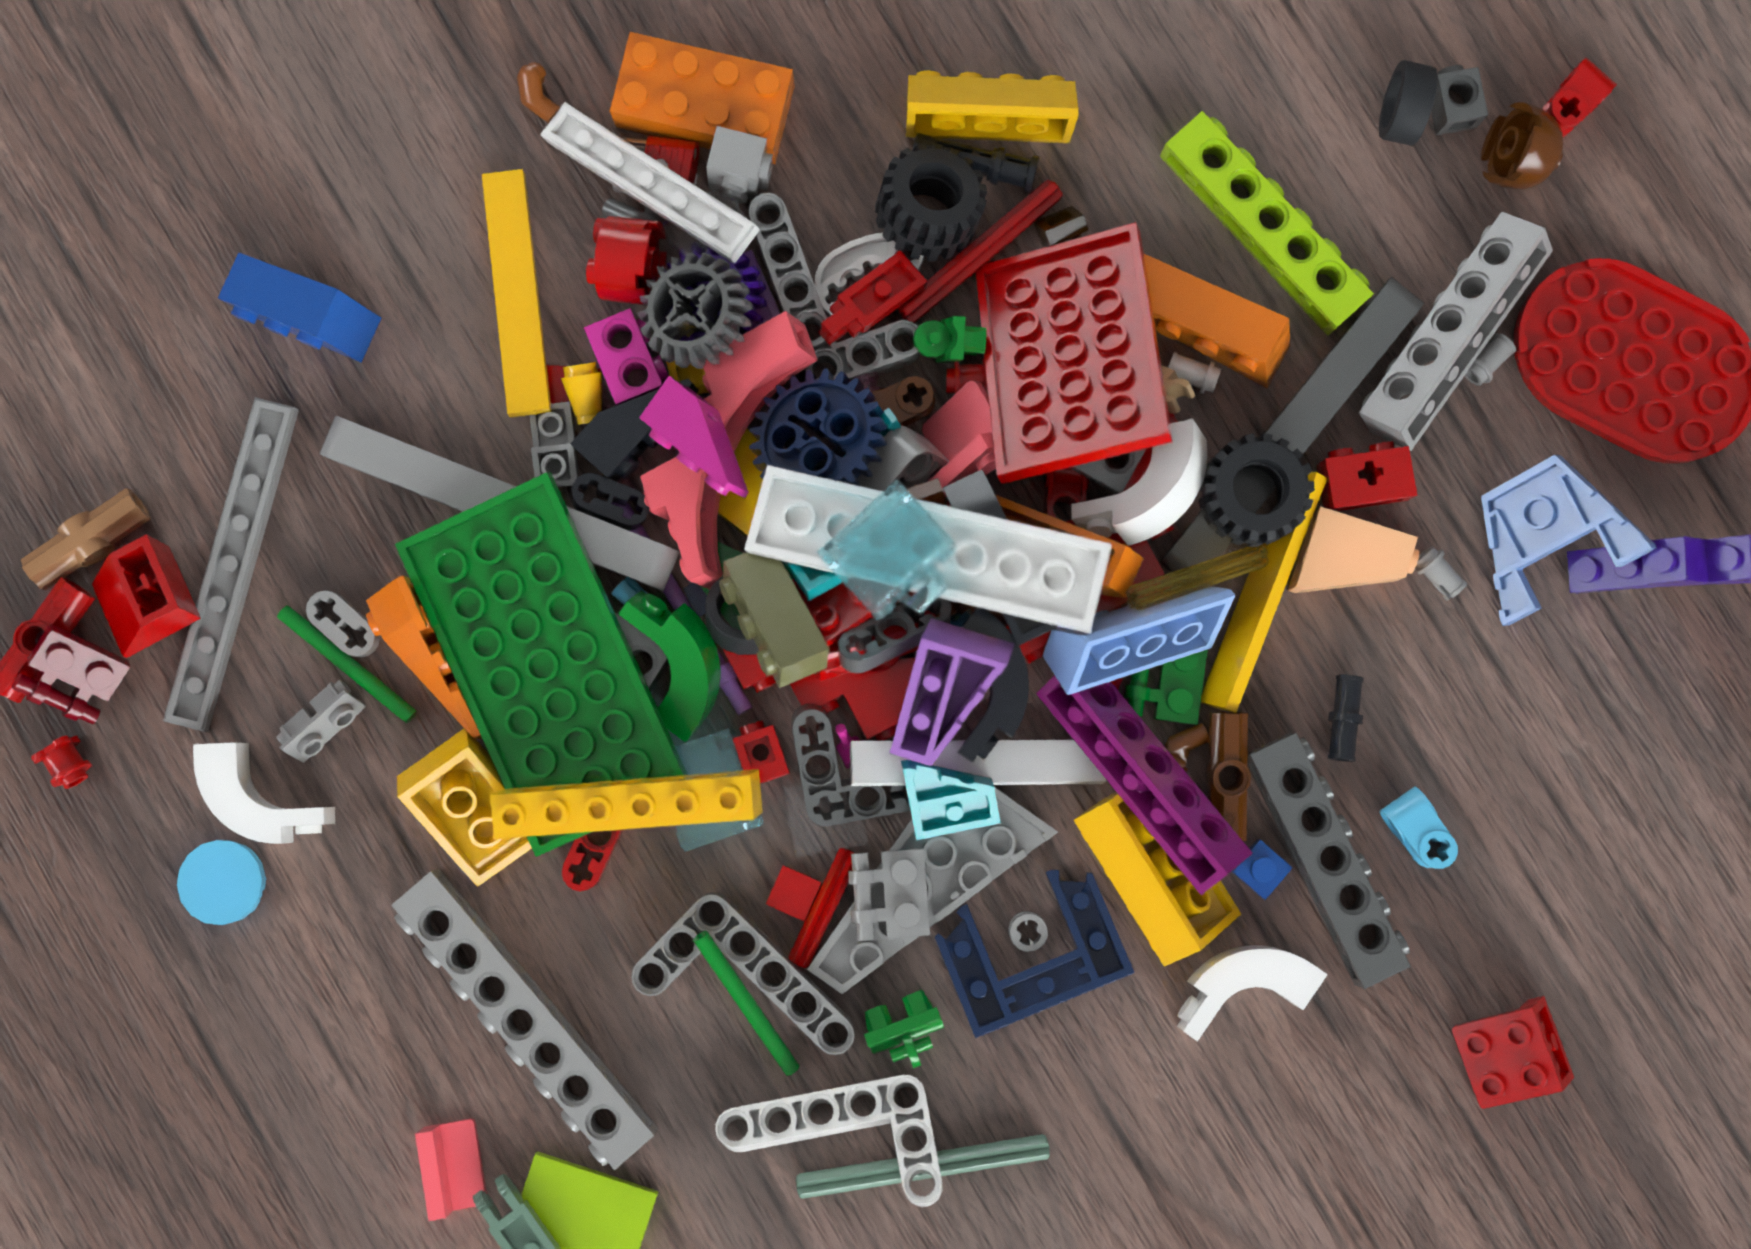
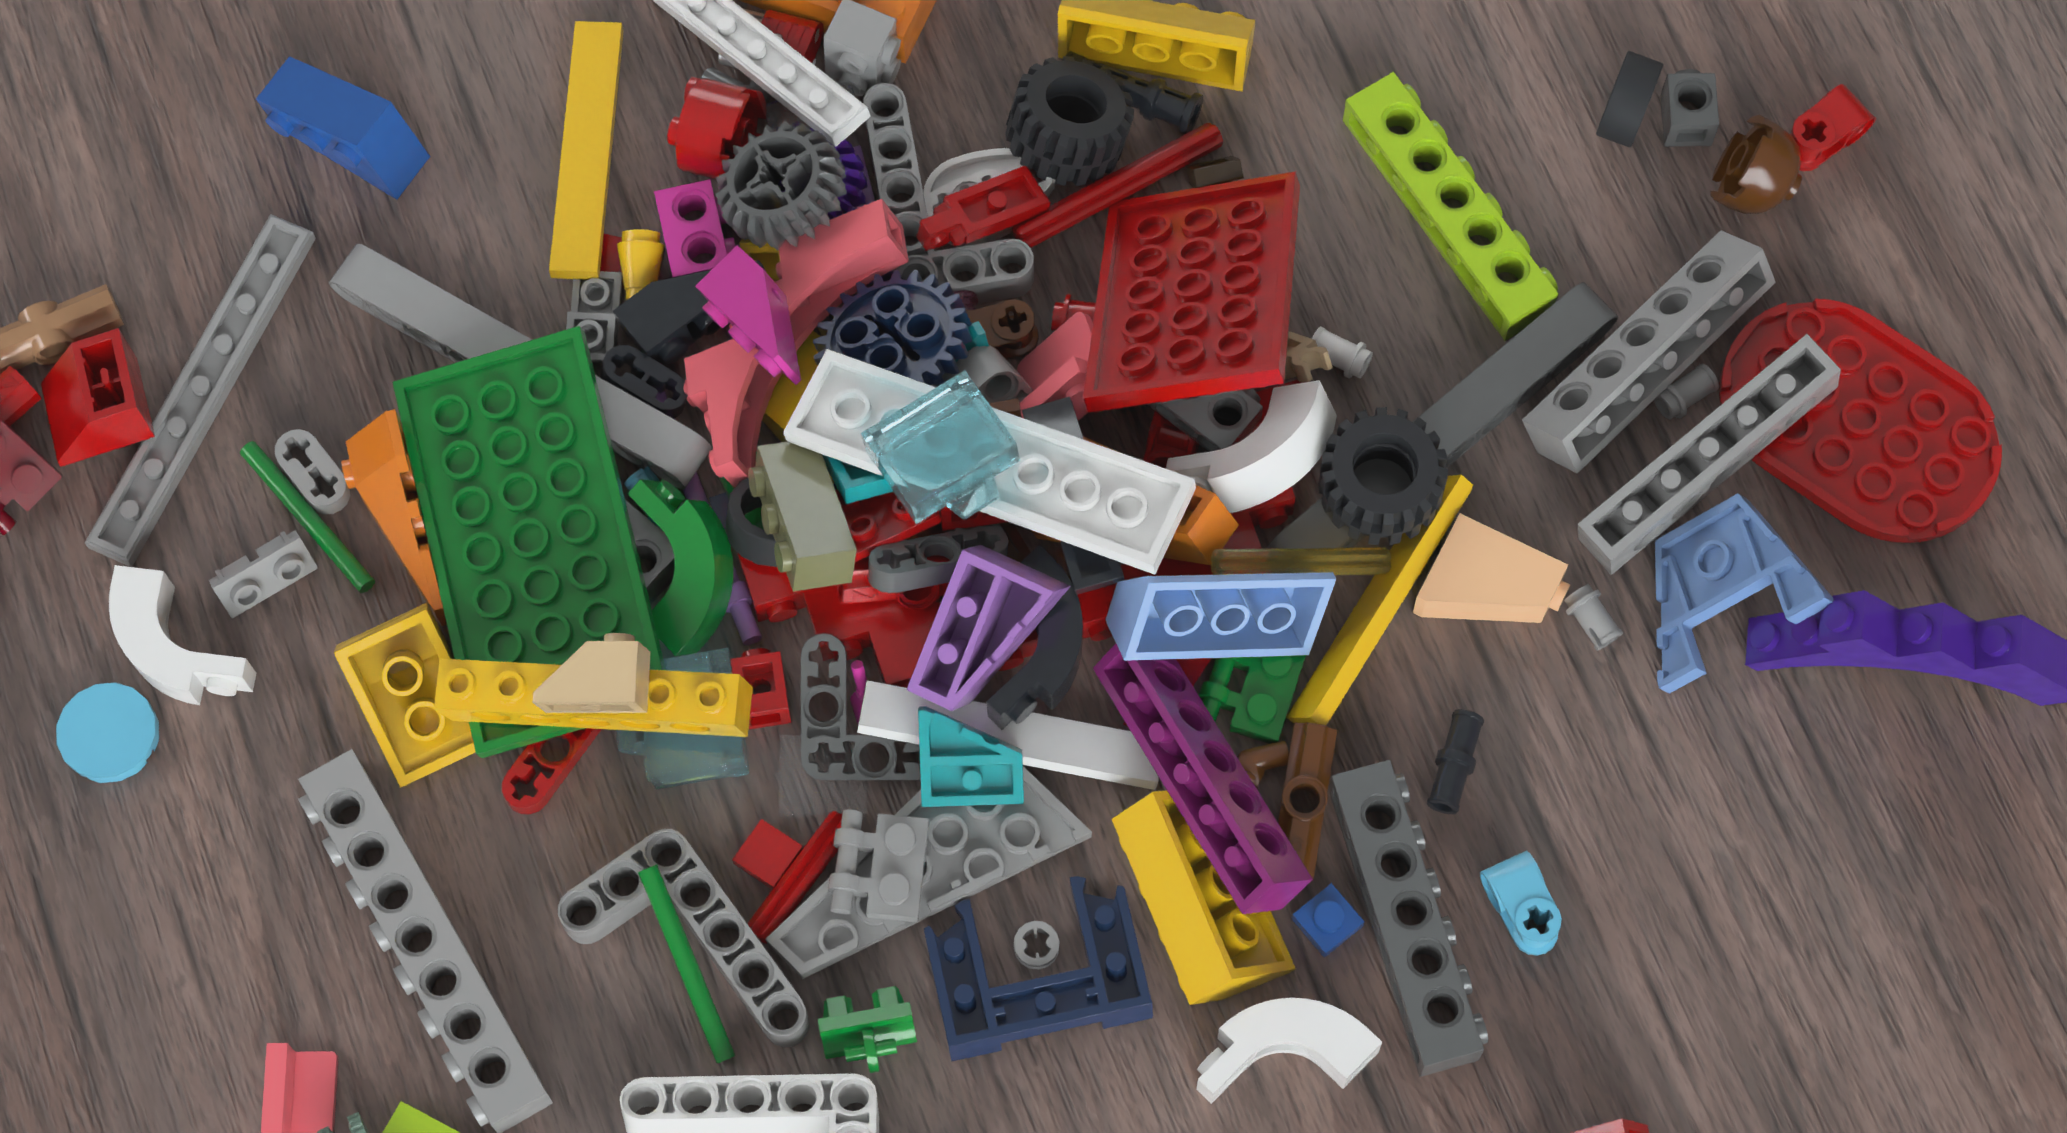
camera: 15 degrees right, 15 degrees down
(634, 804) = (599, 679): none -> tan slope
(949, 339) = (1067, 267): green hips -> none
(1217, 322) = (1374, 299): orange wedge -> none
(1391, 474) = (1544, 483): red brick -> none
(1525, 420) = (1709, 454): none -> light grey brick

